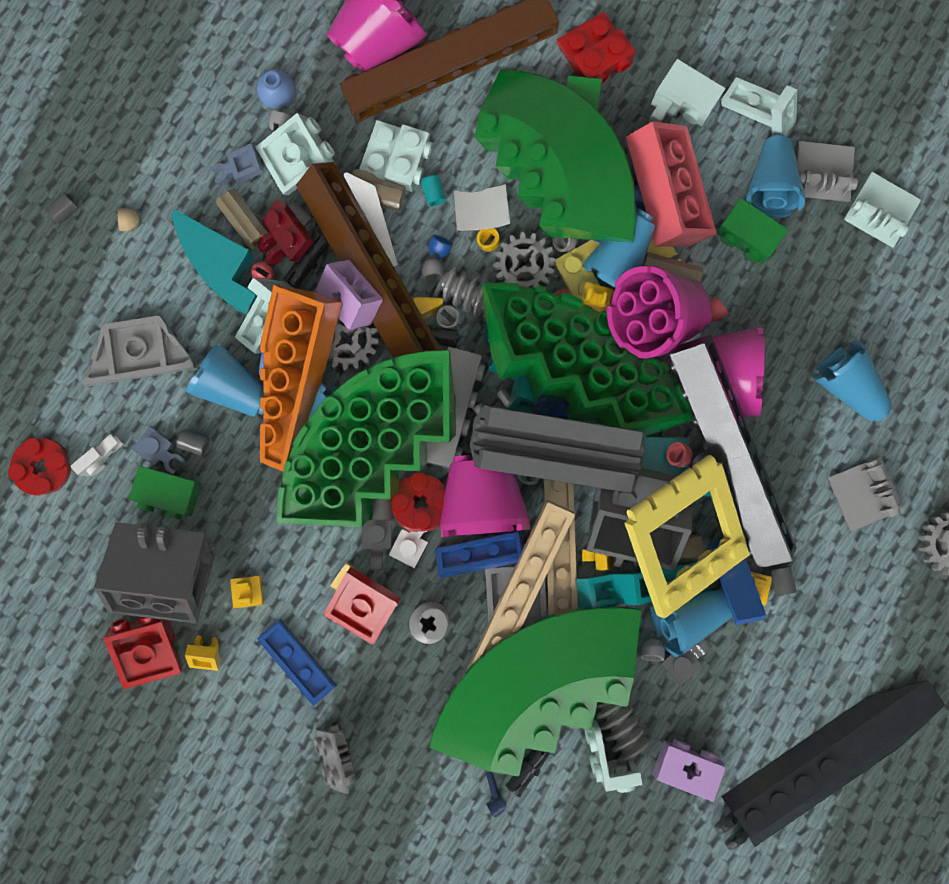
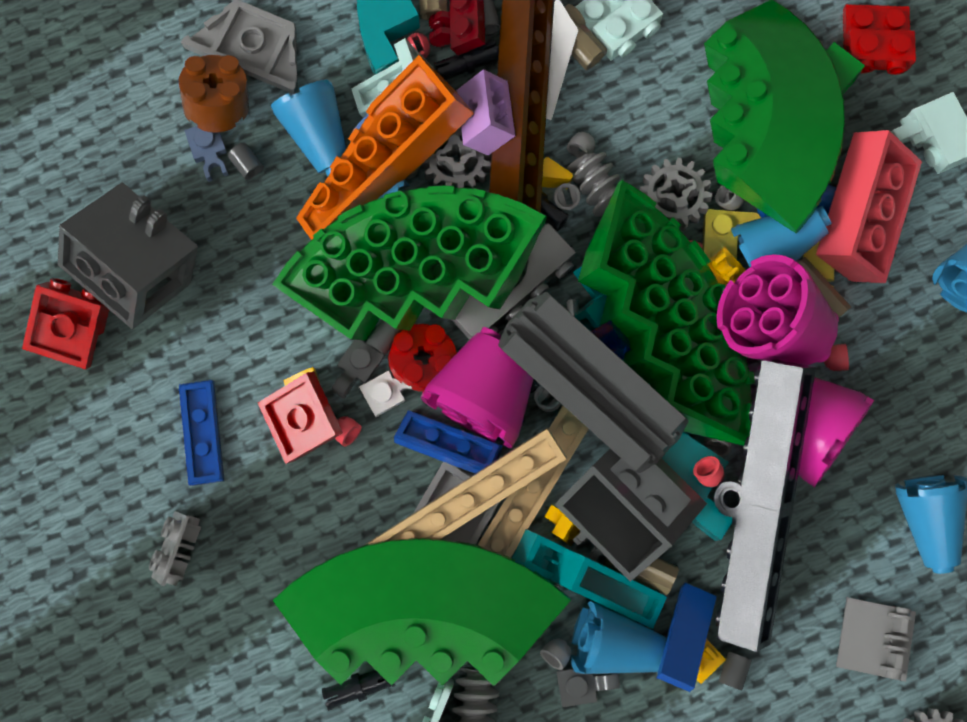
camera: 30 degrees right, 5 degrees down
(23, 470) = (76, 79): red plate -> none
(92, 461) = (143, 116): white plate -> none
(135, 407) = (214, 92): none -> dark orange brick
(165, 492) = (188, 188): green brick -> none
(202, 656) = (117, 367): yellow tile -> none
(247, 591) = (200, 334): yellow tile -> none
(402, 589) = (350, 430): none -> coral hinge
(431, 634) = (341, 472): light grey piece -> none
(433, 190) = (631, 71): teal hinge -> none
(439, 245) = (604, 126): blue hinge -> none
(482, 209) = (667, 117): white sticker -> none
(484, 237) = (653, 145): yellow hinge -> none
(497, 805) = (302, 703): dark blue hand -> none
(663, 505) = (669, 503): light yellow hinge -> none
(751, 232) = (922, 304): green brick -> none

